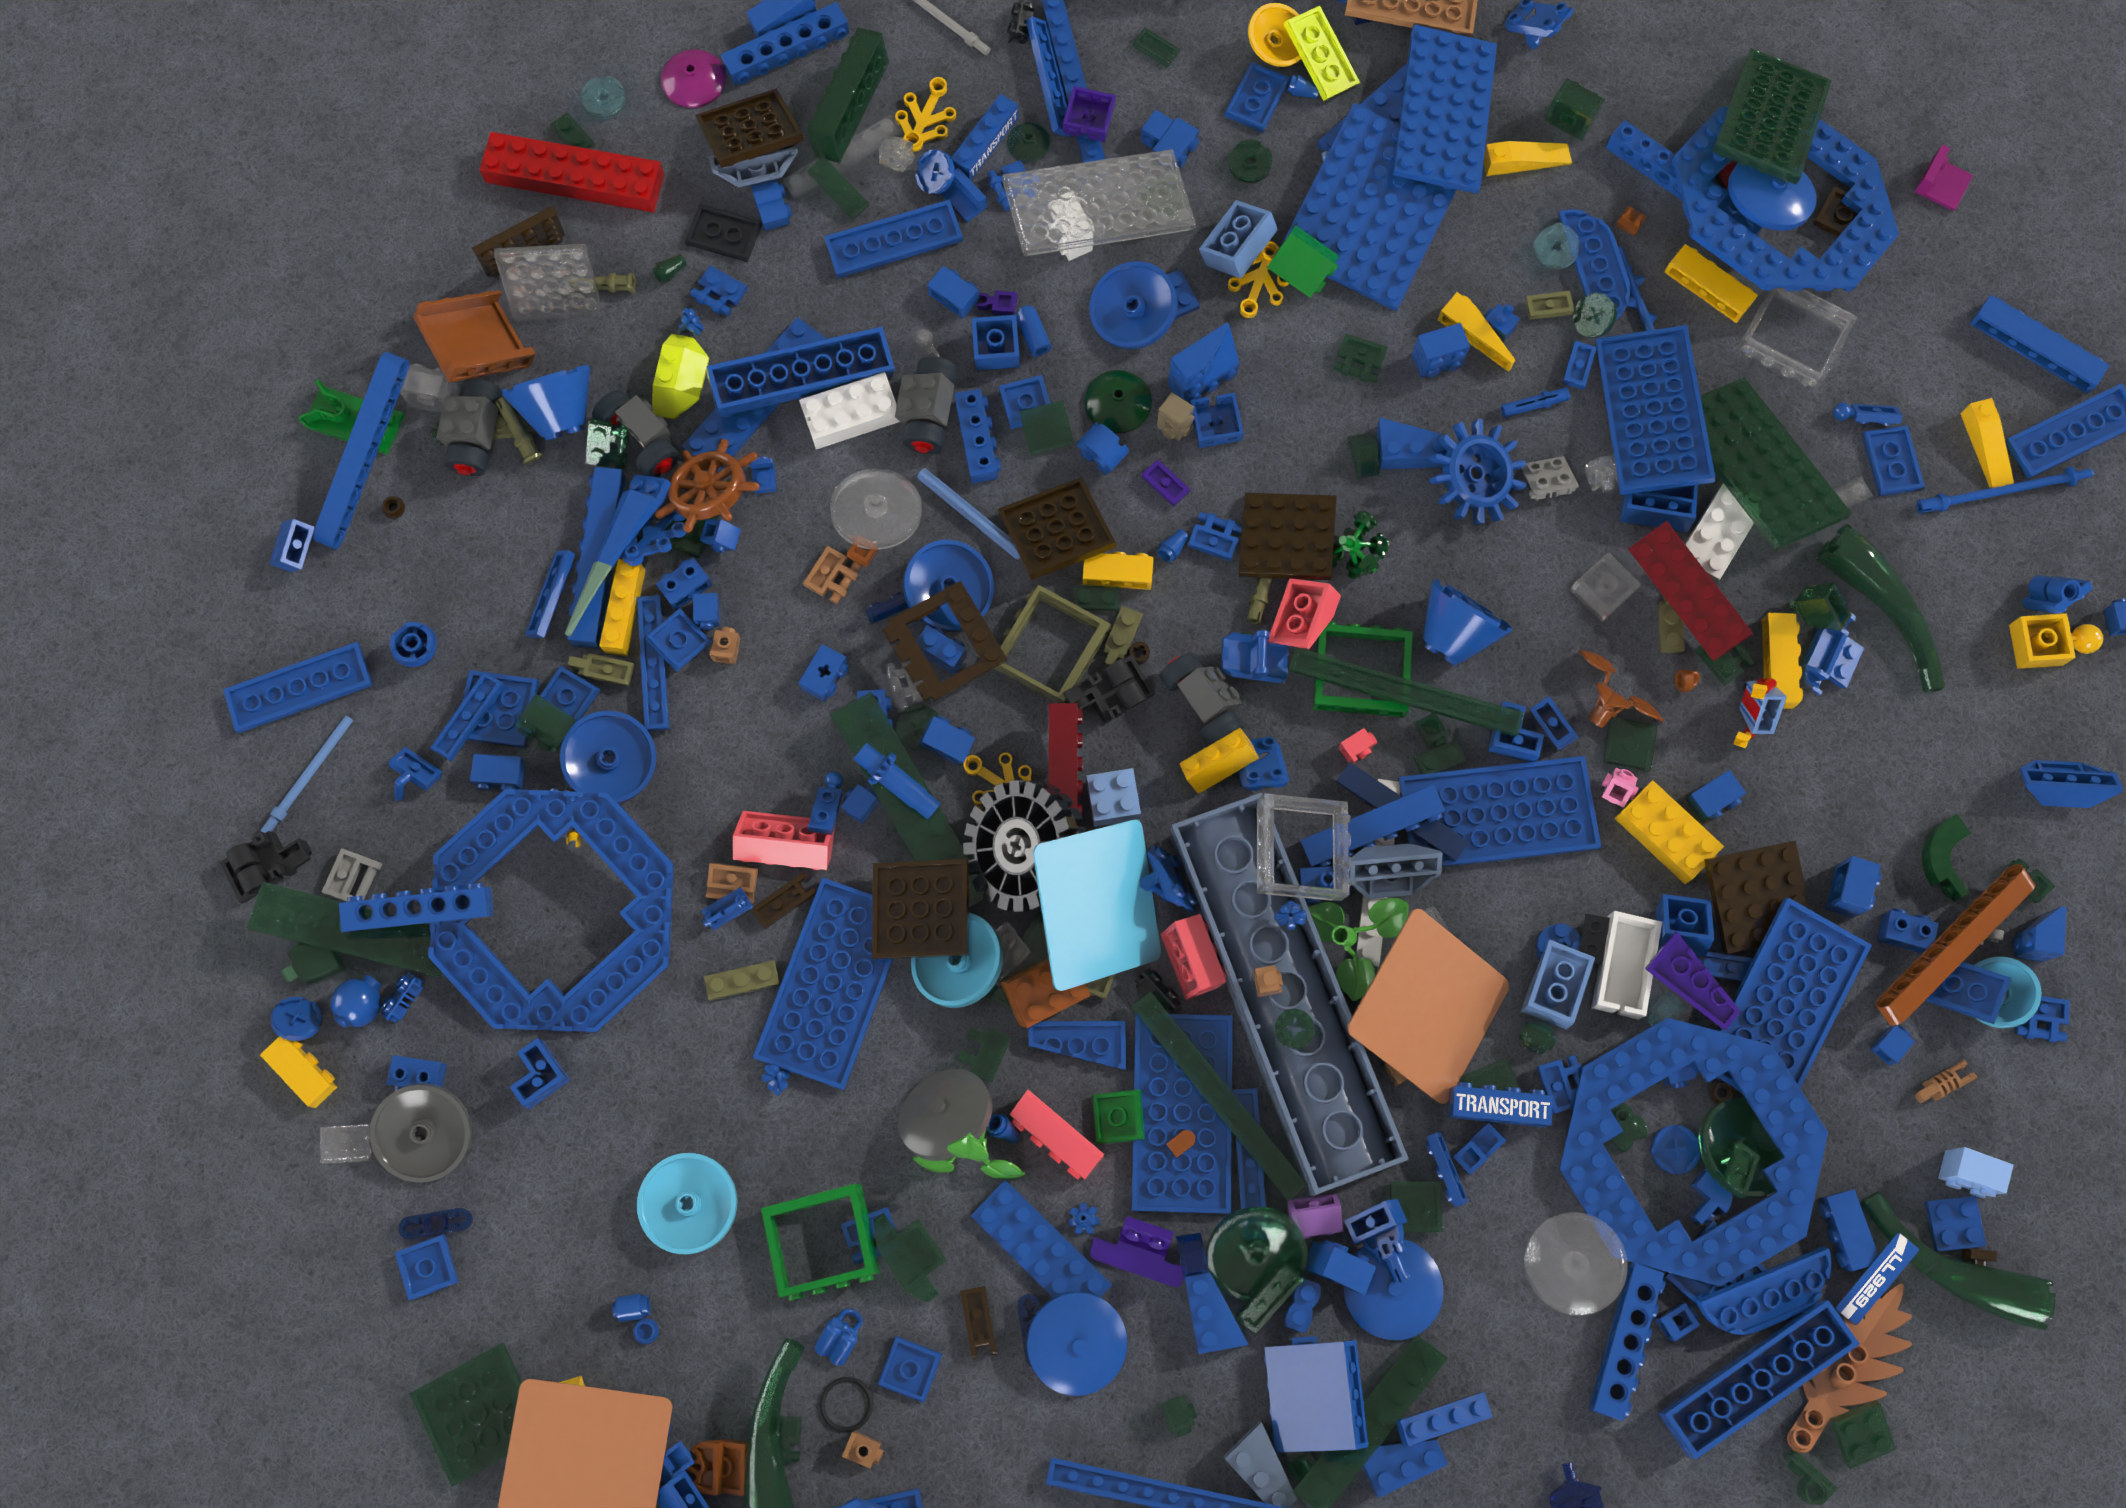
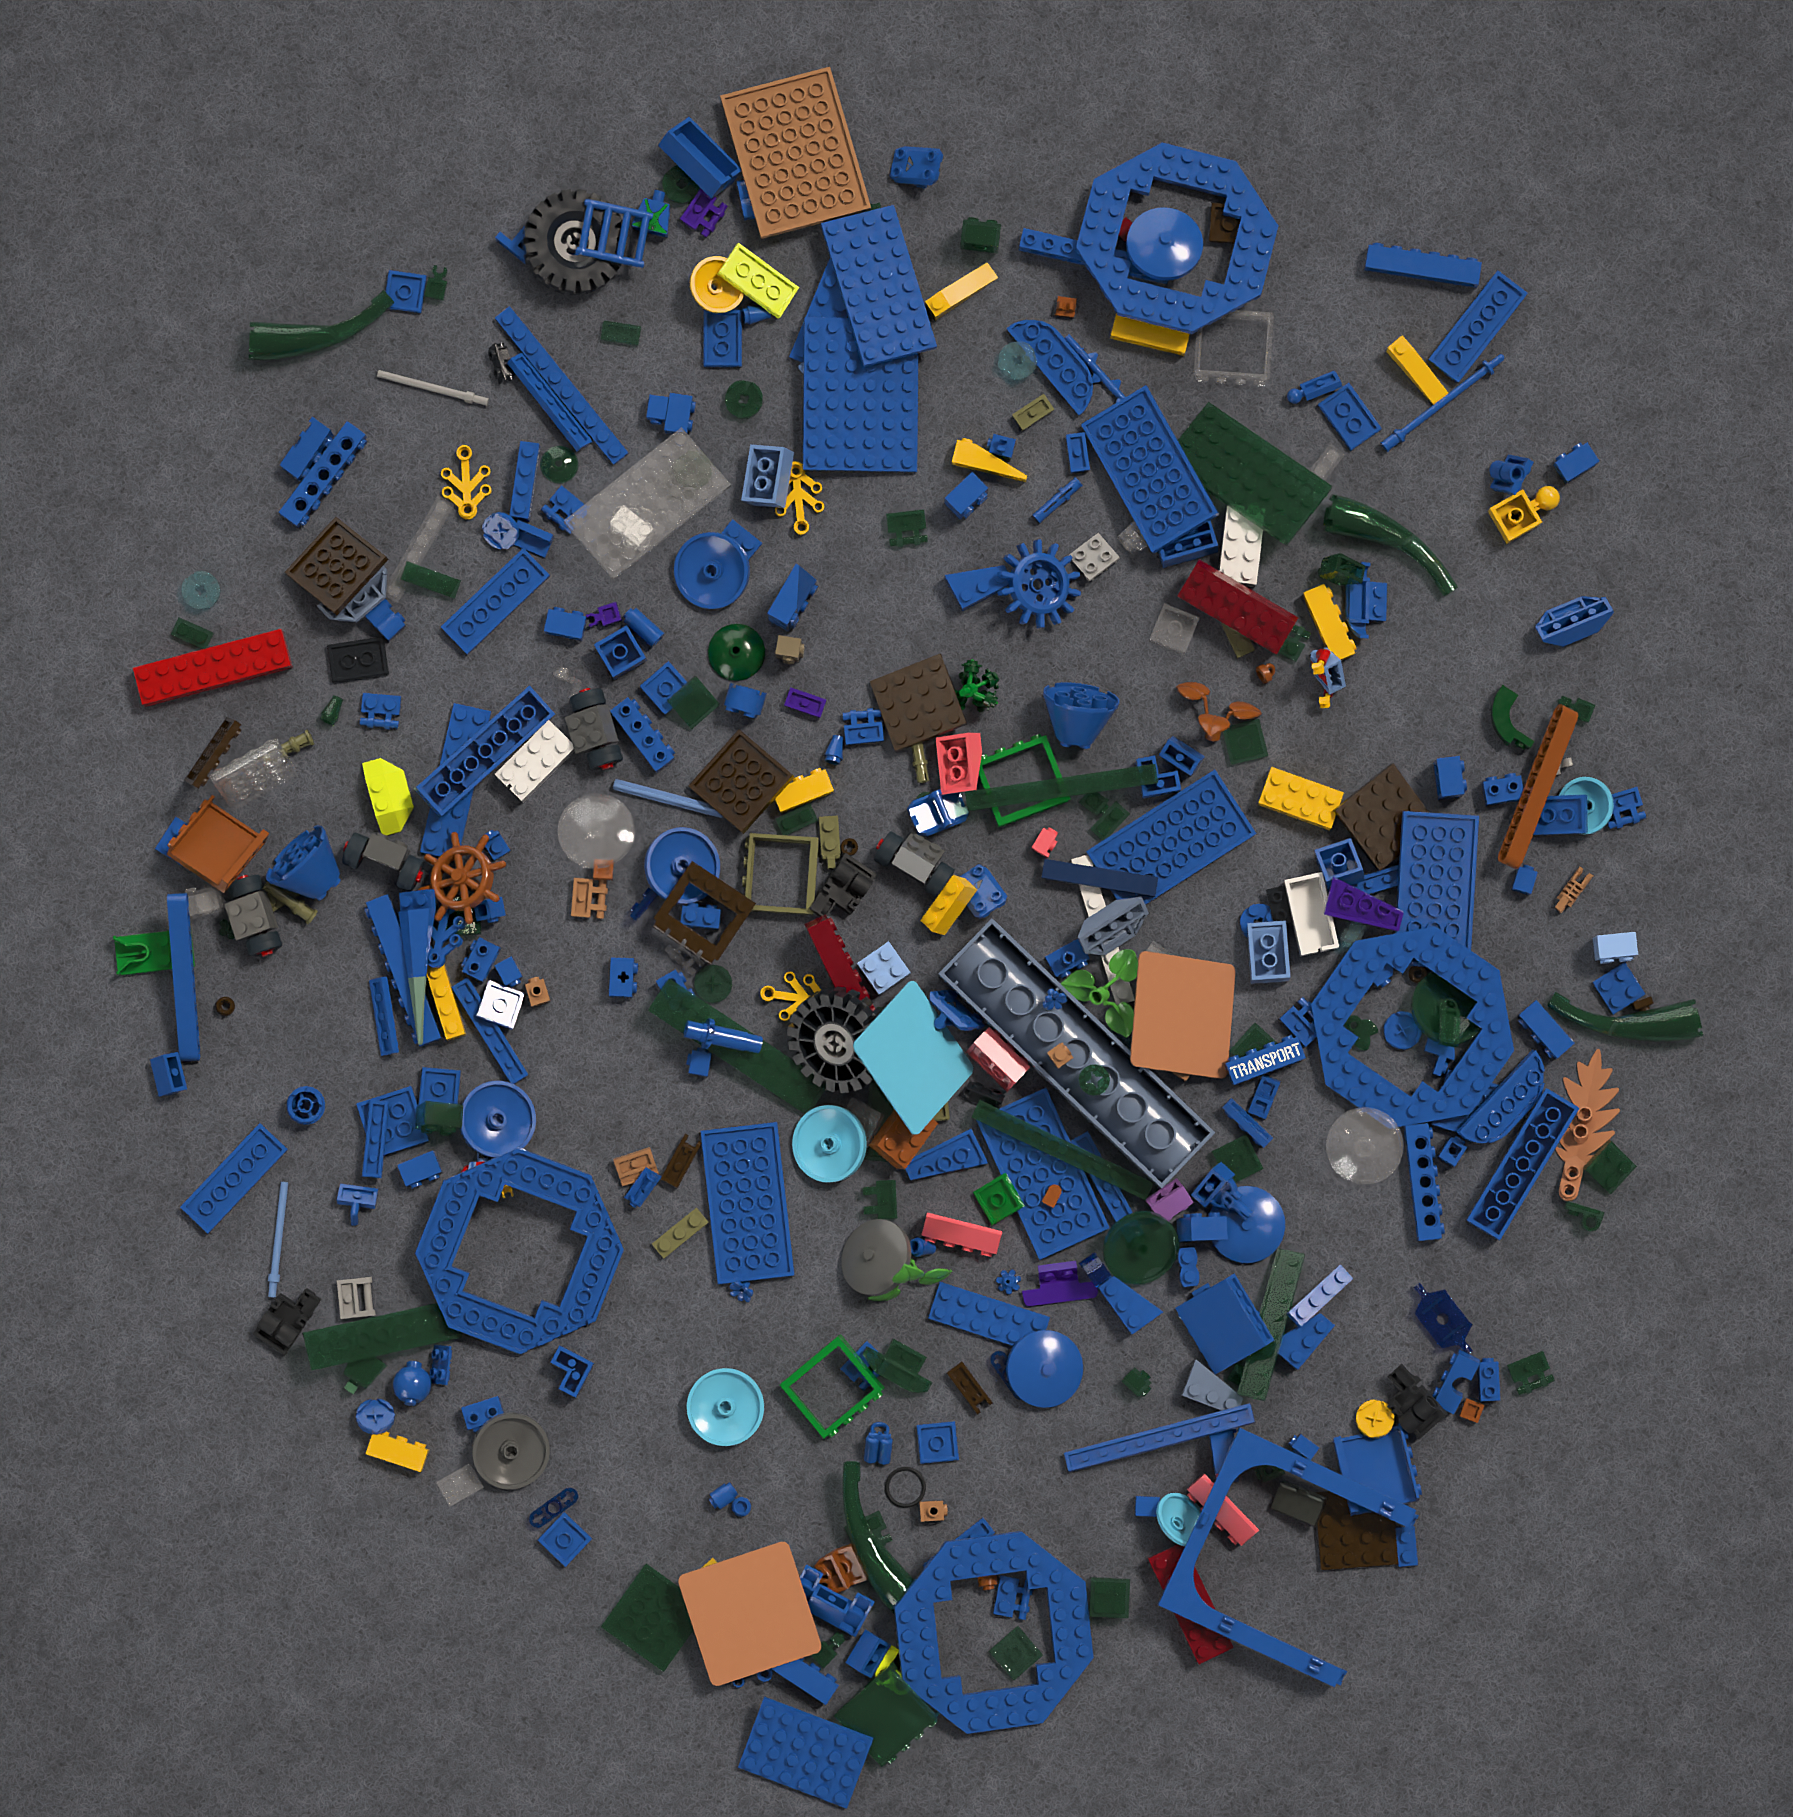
camera: 25 degrees left, 10 degrees up
(353, 916) = (386, 1328): blue brick -> none
(599, 444) = (359, 883): clear green plate -> none
(603, 669) = (455, 1053): olive hinge -> none
(690, 322) = (373, 747): blue plant -> none
(695, 87) = (266, 550): magenta dish -> none
(780, 841) = (658, 1116): coral slope -> none
(827, 804) = (676, 1075): blue plate -> none
(848, 95) = (401, 501): clear green brick -> none
(896, 153) = (462, 529): clear brick -> none
(920, 909) = (785, 1120): dark brown plate -> none
(946, 740) = (740, 985): blue brick -> none
(1091, 105) = (598, 416): dark purple piece -> none
(1225, 411) = (827, 642): blue piece -> none
(1265, 846) = (1014, 961): clear window -> none
(1269, 1297) = (1163, 1272): clear green plate -> none
(1303, 262) = (827, 473): green brick -> none
(1364, 455) = (945, 606): clear green slope -> none
(1376, 824) = (1083, 900): blue brick -> none
(1537, 1036) = (1270, 996): clear green head -> none
(1594, 315) = (1072, 407): clear green tile -> none
(1620, 787) = (1250, 781): bright pink brick -> none
(1715, 796) = (1324, 753): blue brick -> none
(1772, 116) = (1138, 173): clear green plate -> none
(1877, 1278) = (1577, 1055): blue sticker -> none
(1943, 181) = (1296, 156): magenta bracket -> none
(2043, 937) = (1598, 750): blue slope -> none

